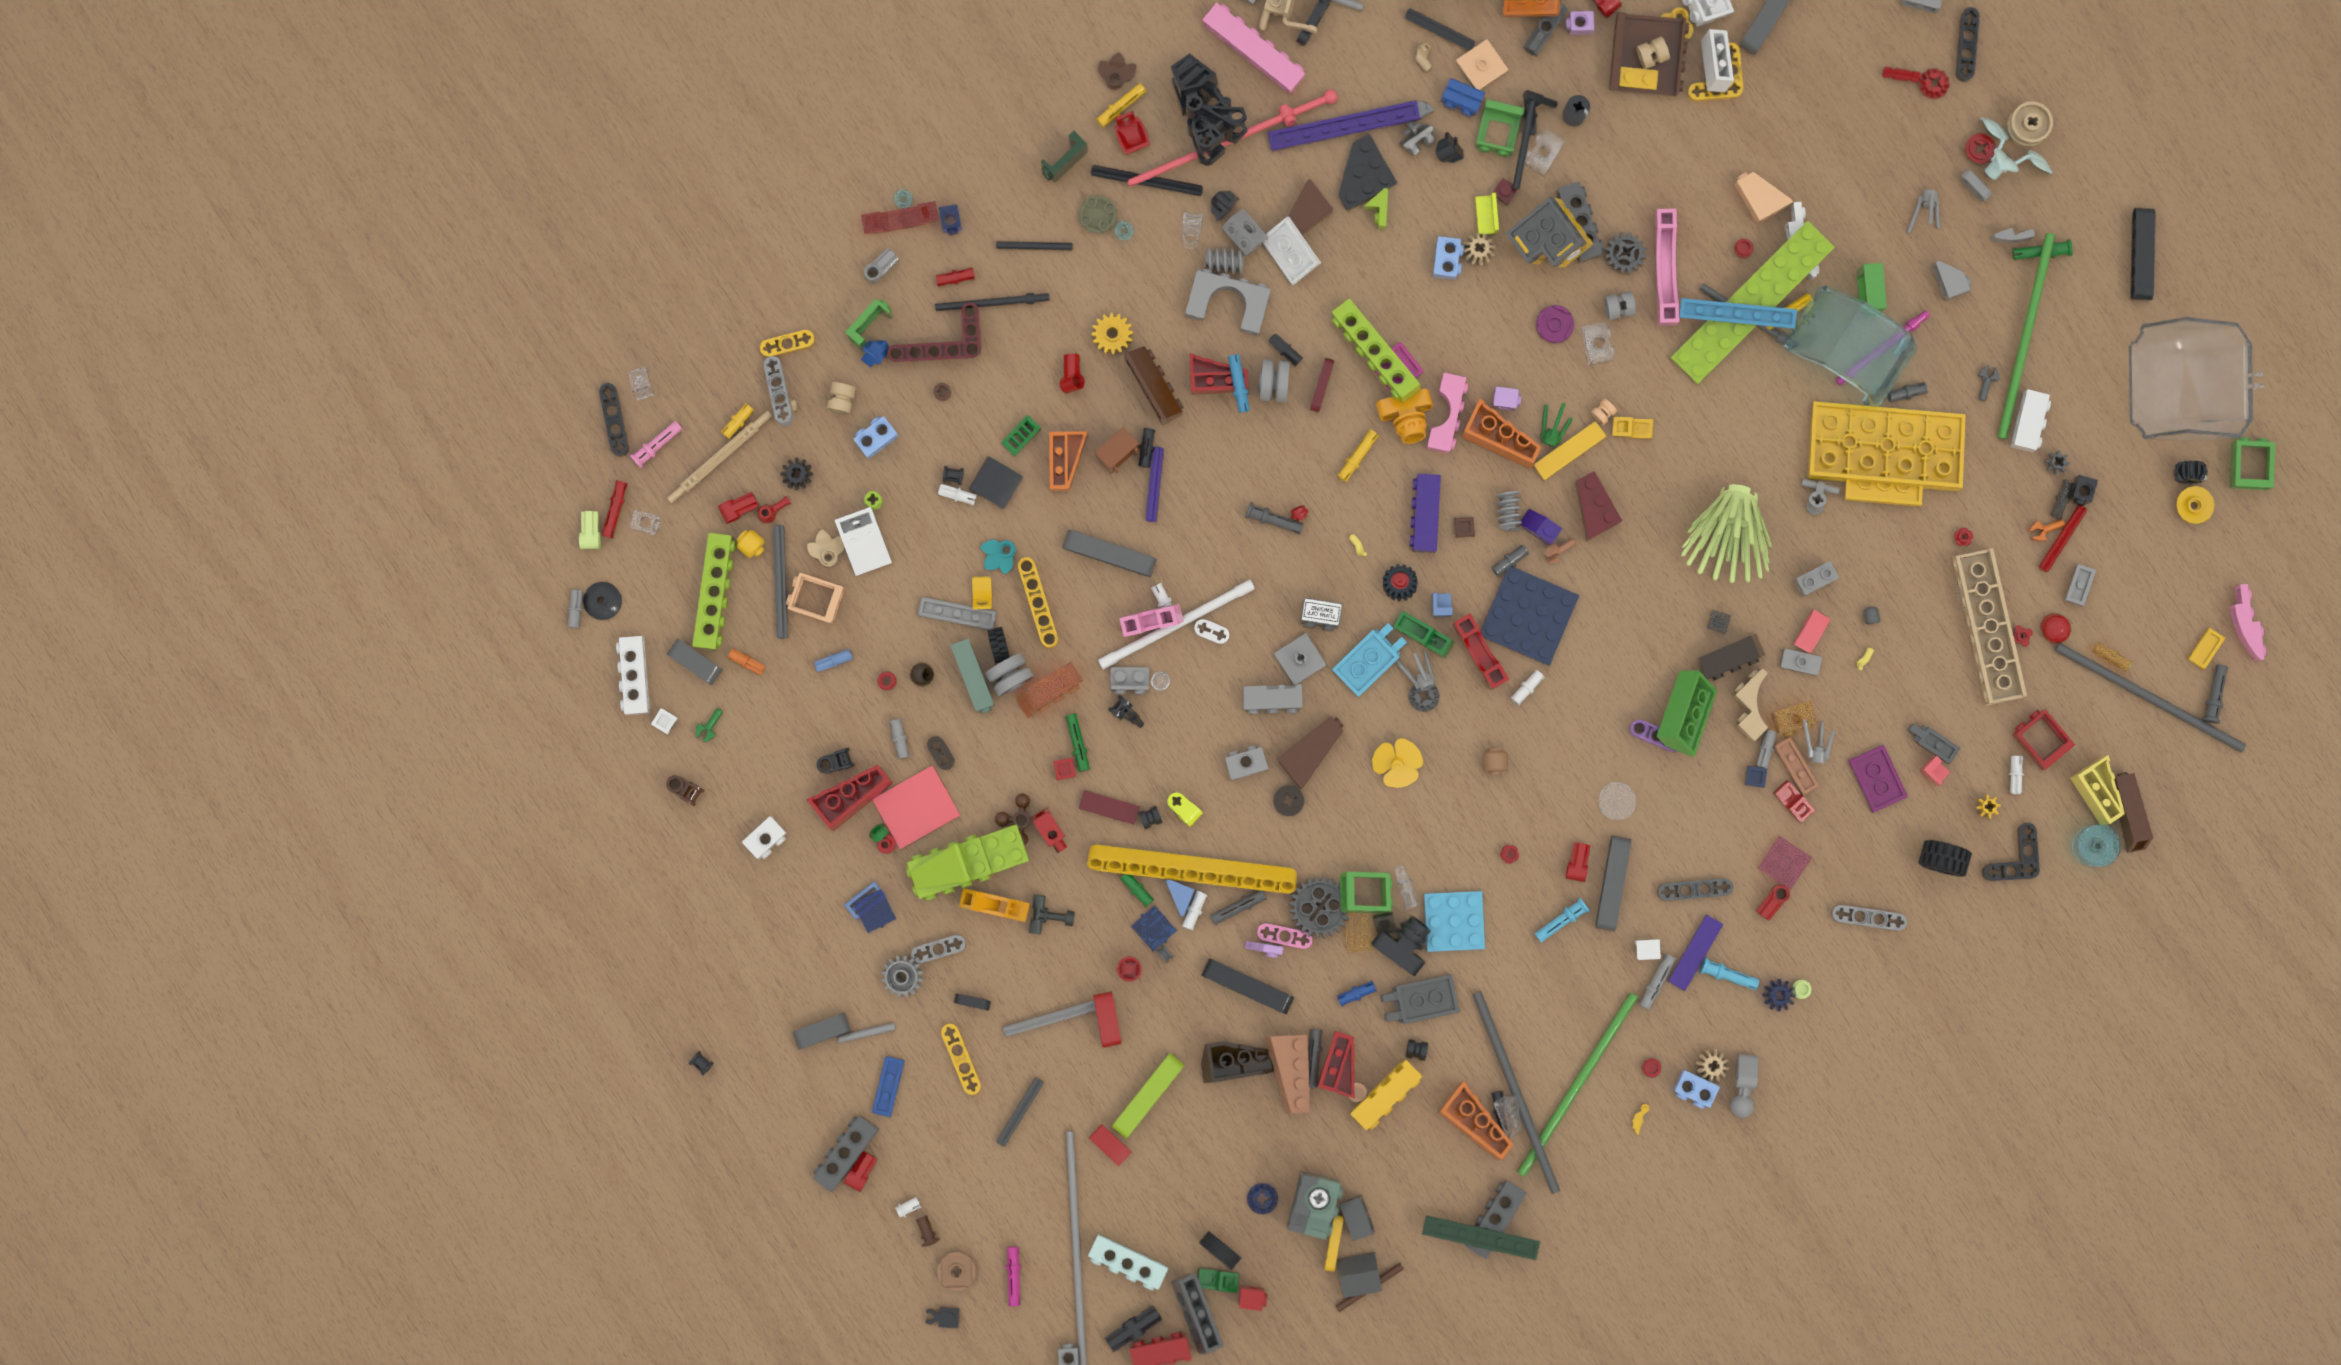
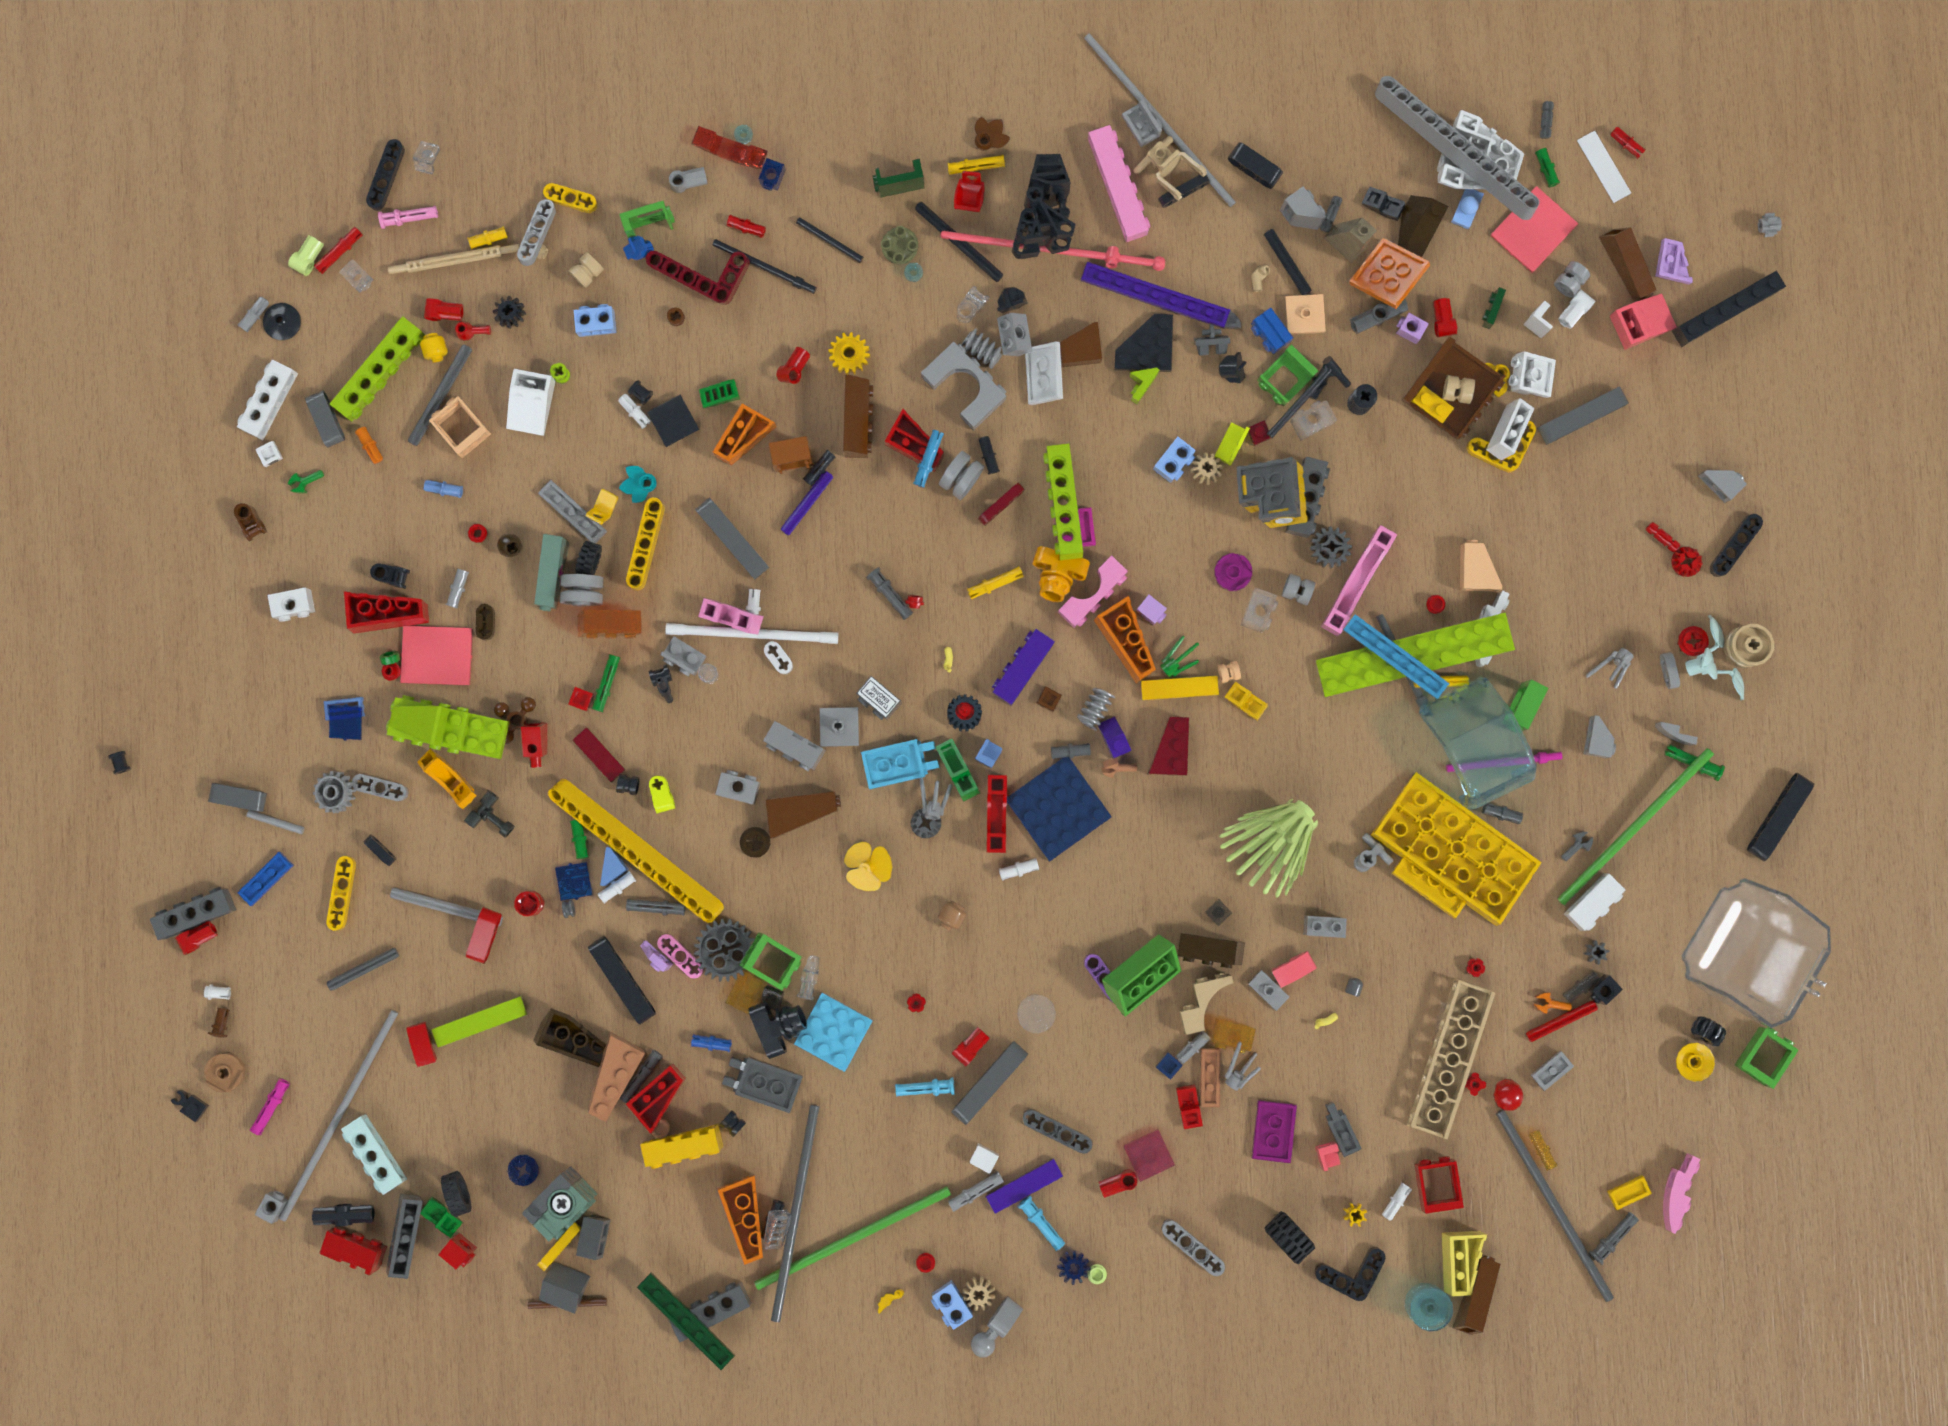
camera: 30 degrees right, 0 degrees up
(824, 546) = (495, 386): tan plate -> none

